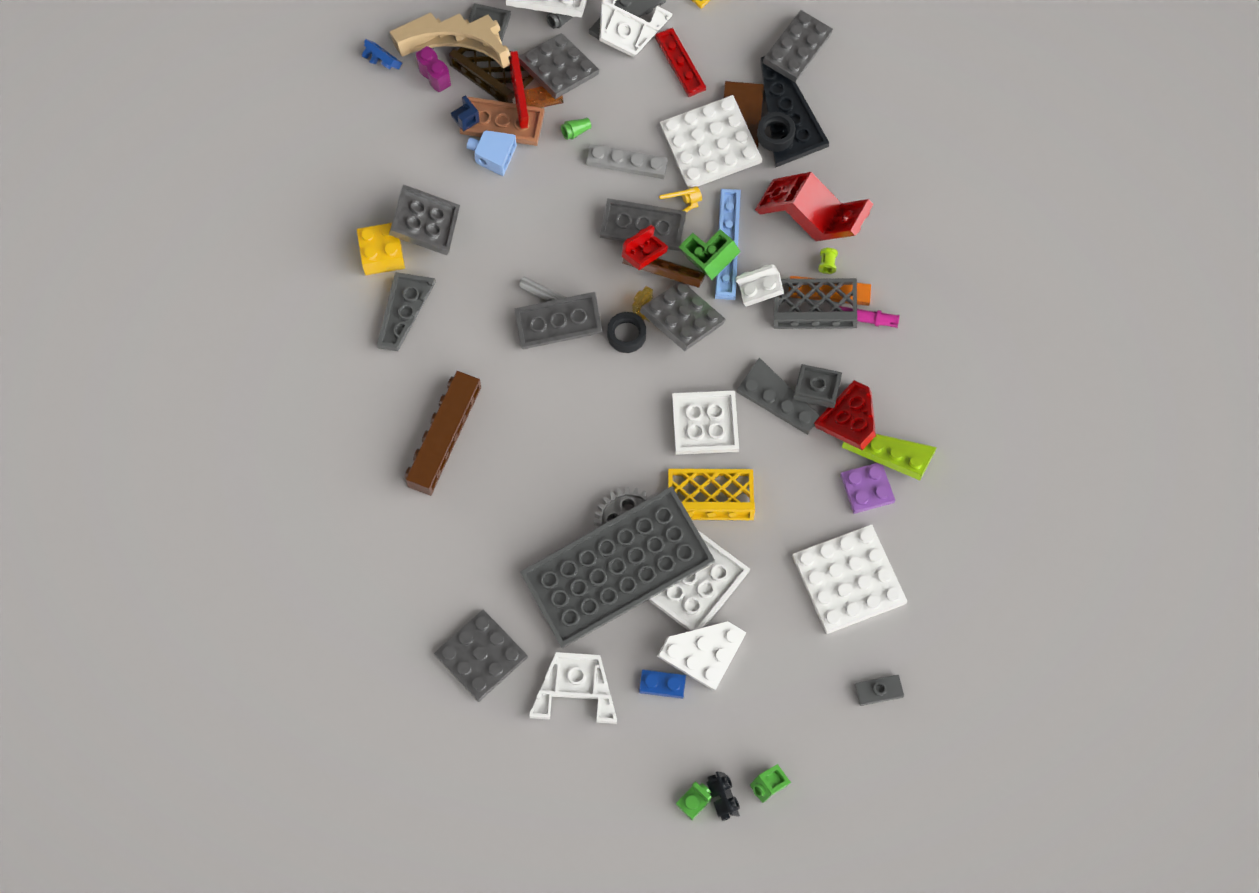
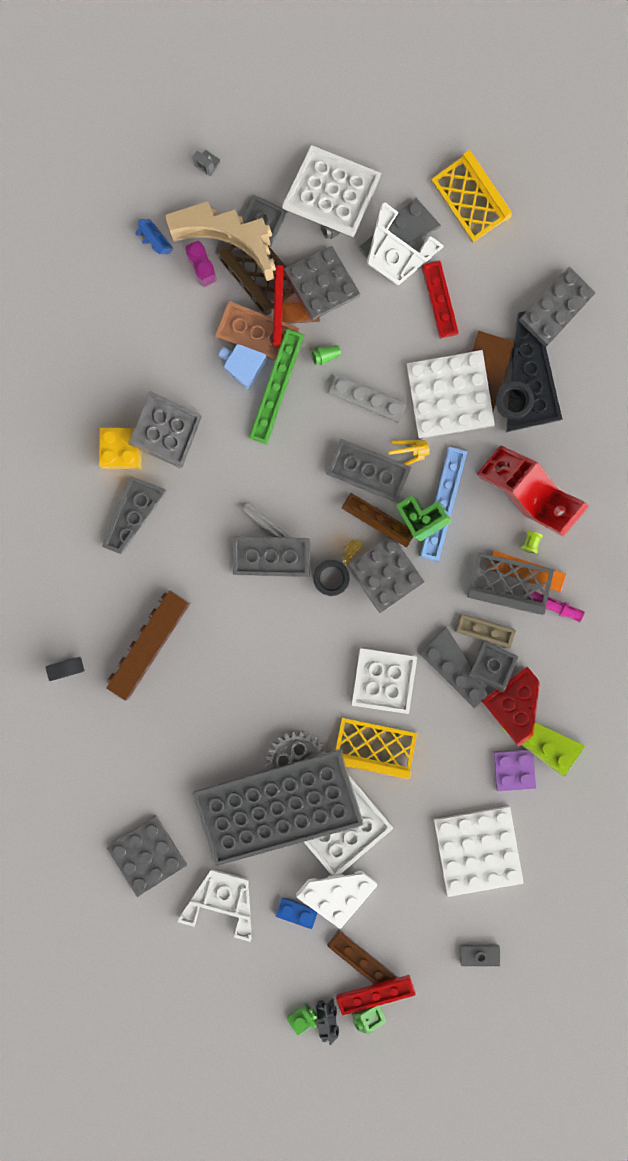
camera: 10 degrees right, 20 degrees up
(357, 469) = (64, 668): none -> black tyre
(466, 115) = (222, 323): dark blue panel -> none
(531, 164) = (276, 386): none -> bright green tile
(643, 248) = (363, 502): red bracket -> none
(749, 724) = (359, 958): none -> reddish brown tile
(760, 285) = (463, 557): white bracket -> none
(771, 753) = (376, 995): none -> red tile
(801, 354) = (485, 630): none -> dark tan tile

